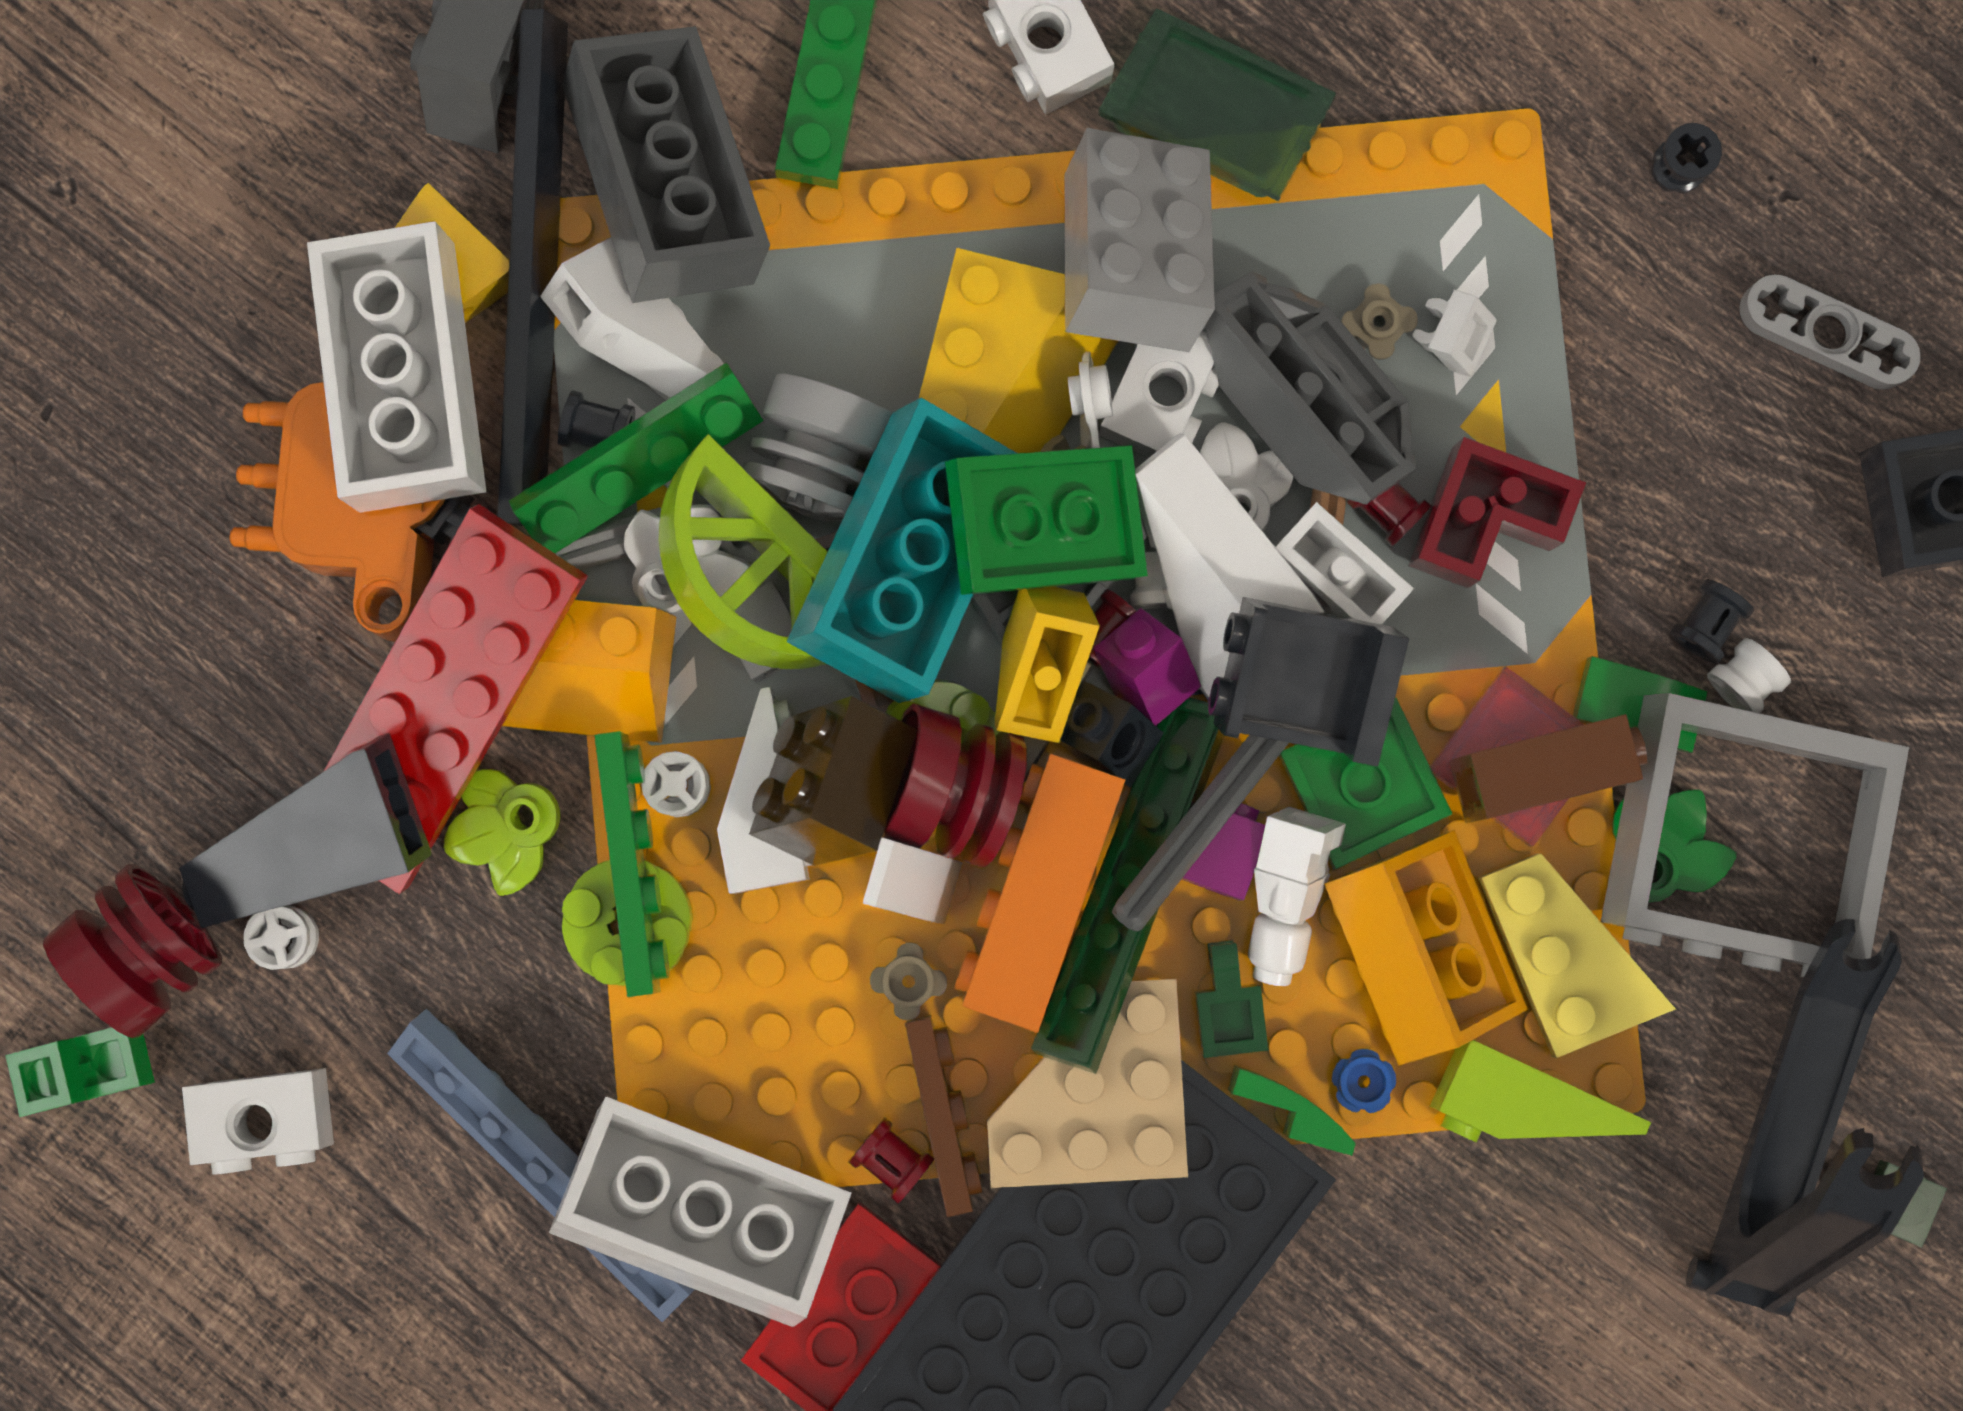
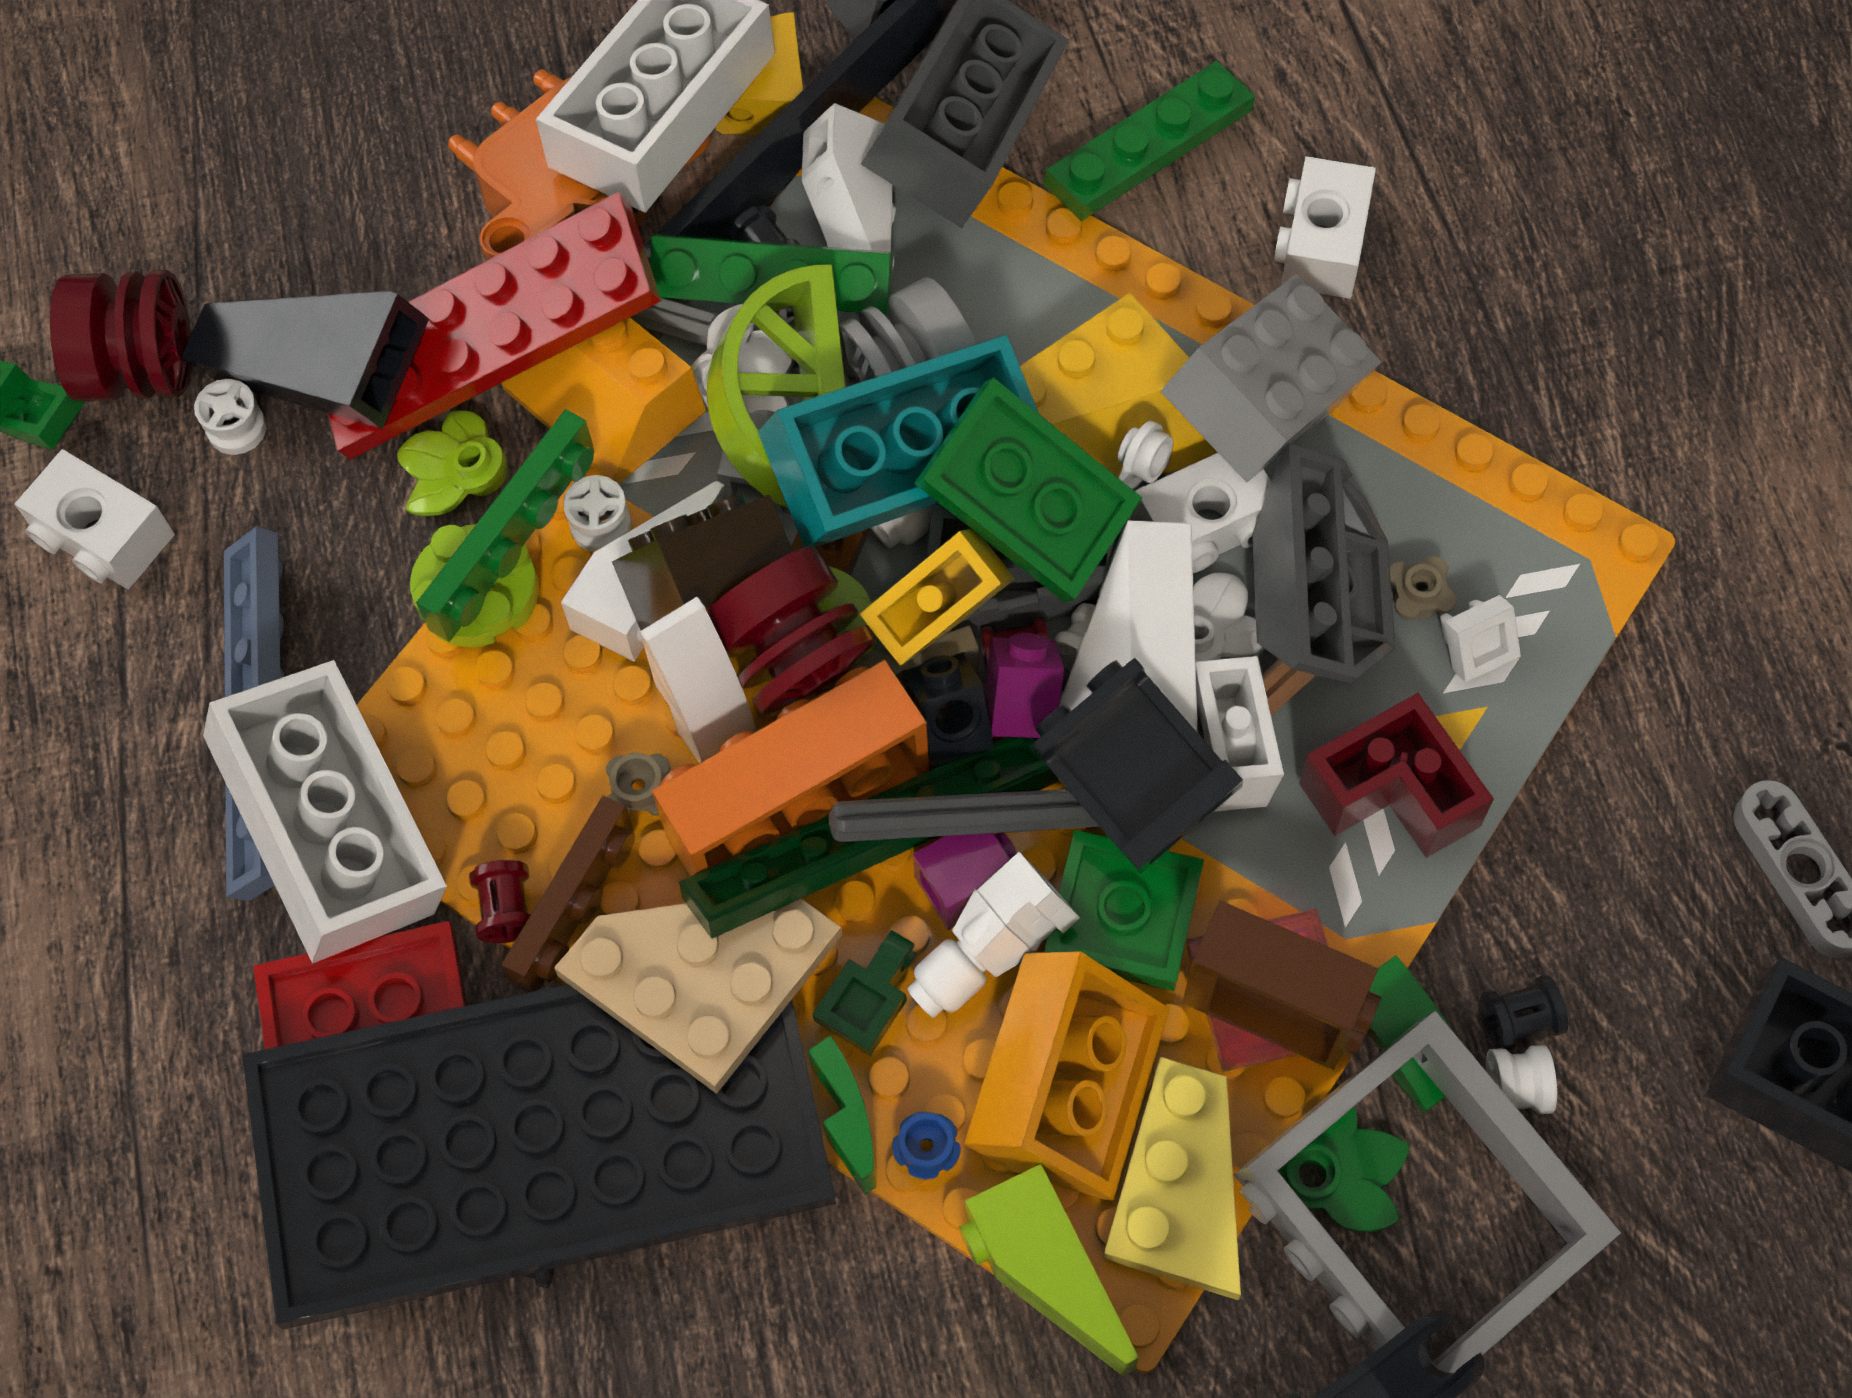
camera: 40 degrees right, 20 degrees down
(1217, 98) = (1431, 366): clear green piece -> none
(1394, 512) = (1316, 714): dark red bush -> none
(1681, 141) = (1775, 648): black bush -> none

